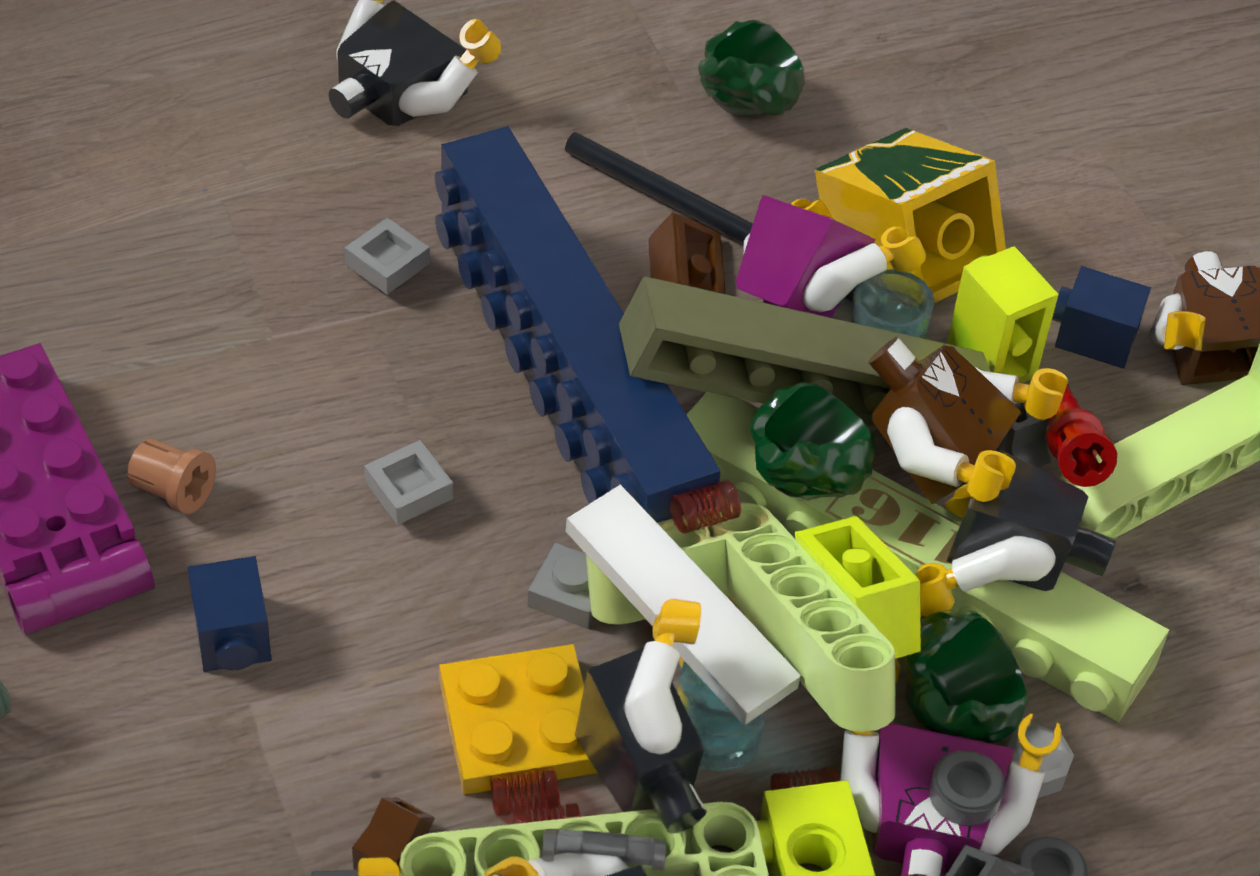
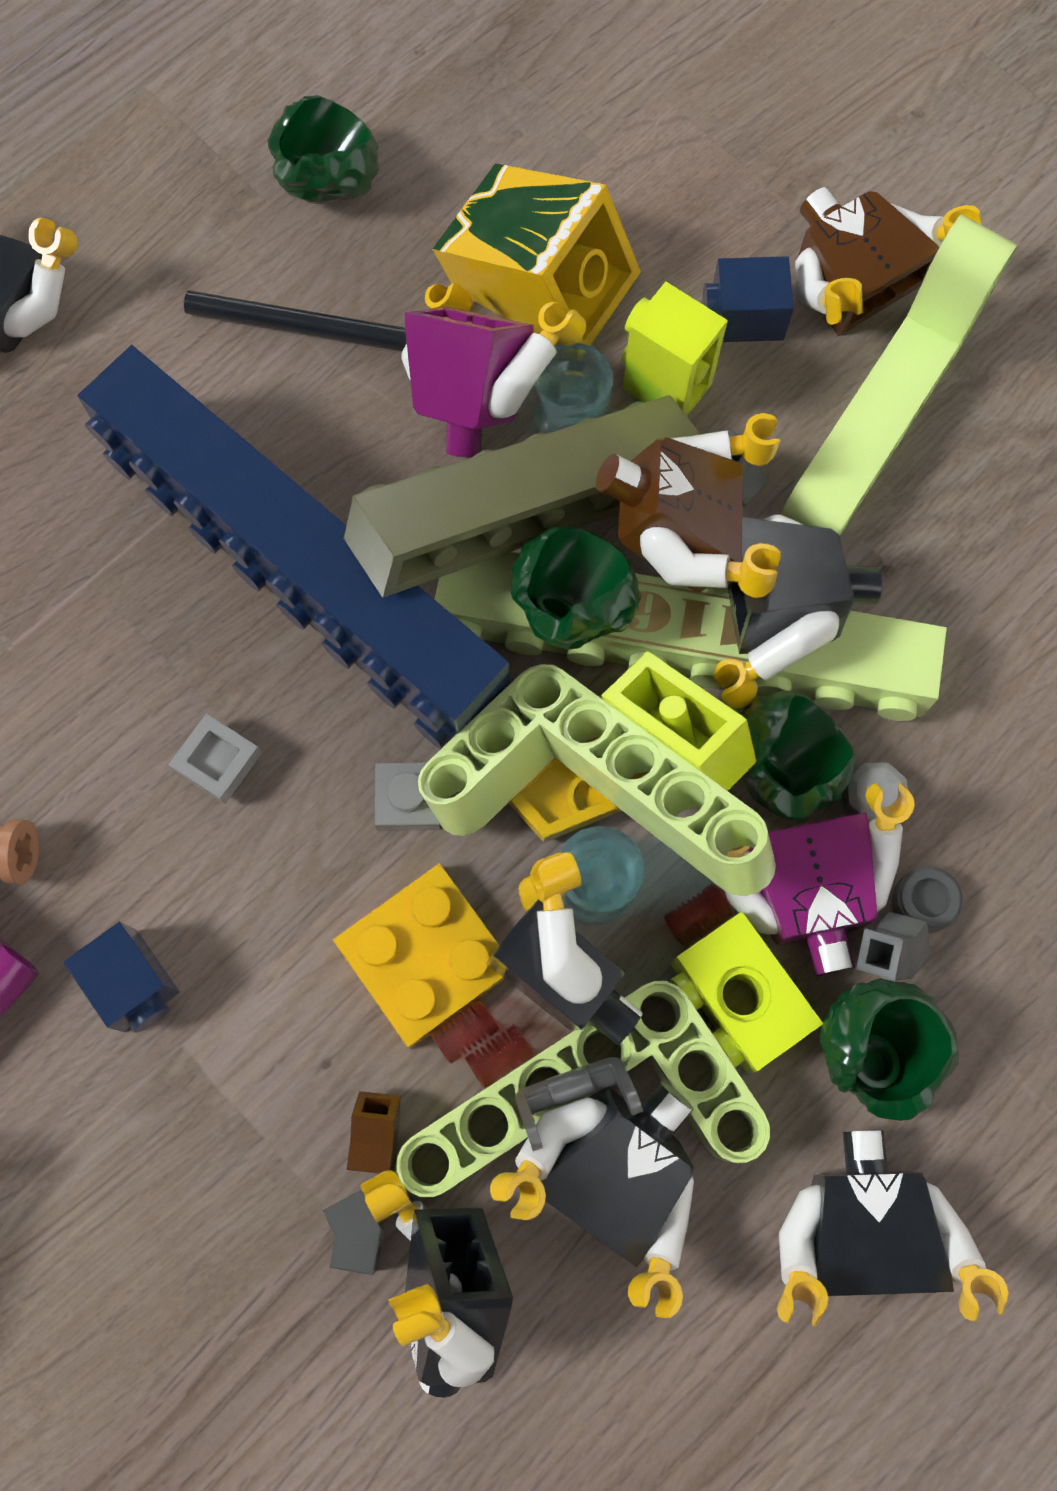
camera: 20 degrees left, 25 degrees up
(387, 255) = (77, 514): light grey plate -> none
(652, 568) = (532, 816): white tile -> none
(687, 254) = (360, 408): reddish brown slope -> none
(690, 510) = (492, 714): clear red piece -> none
(967, 788) = (847, 877): dark grey tile -> none
(1076, 439) = (797, 457): red pin -> none

